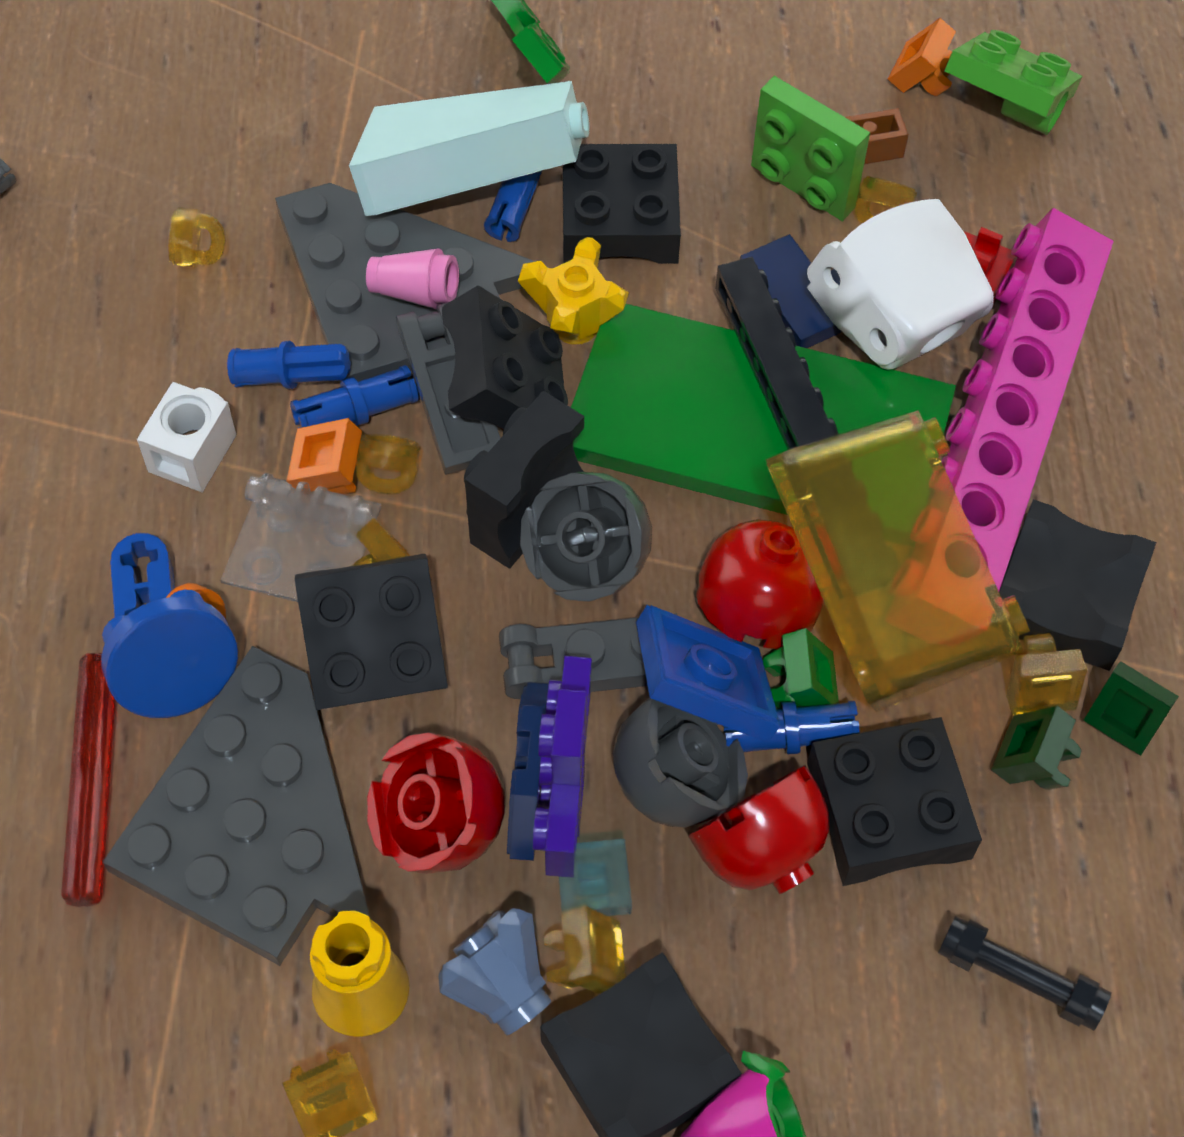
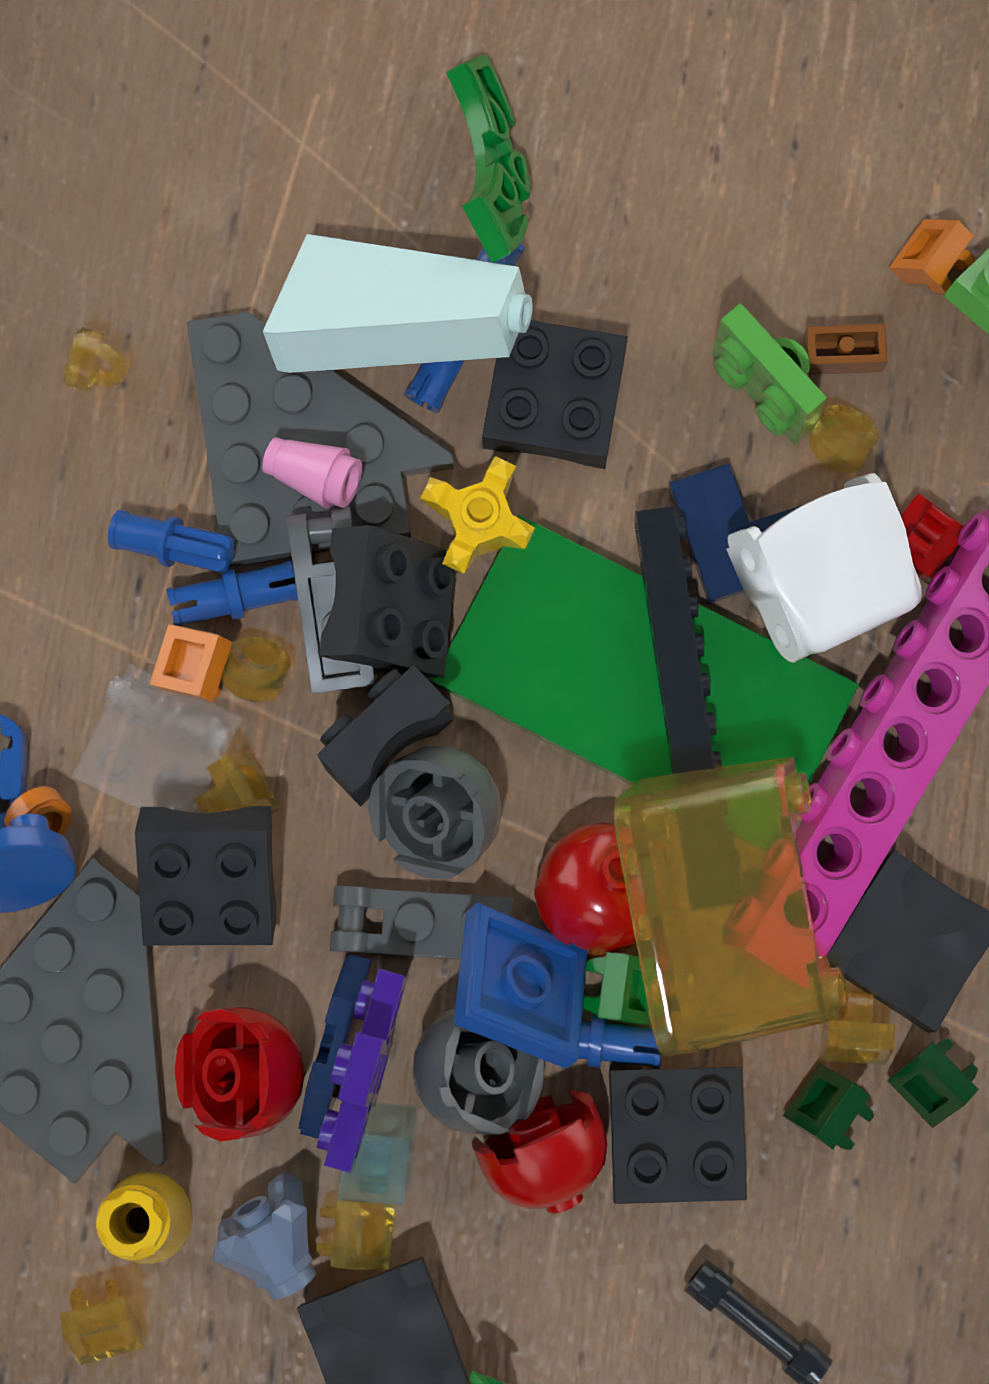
camera: 15 degrees right, 20 degrees up
(190, 457) = (63, 635): white brick -> none

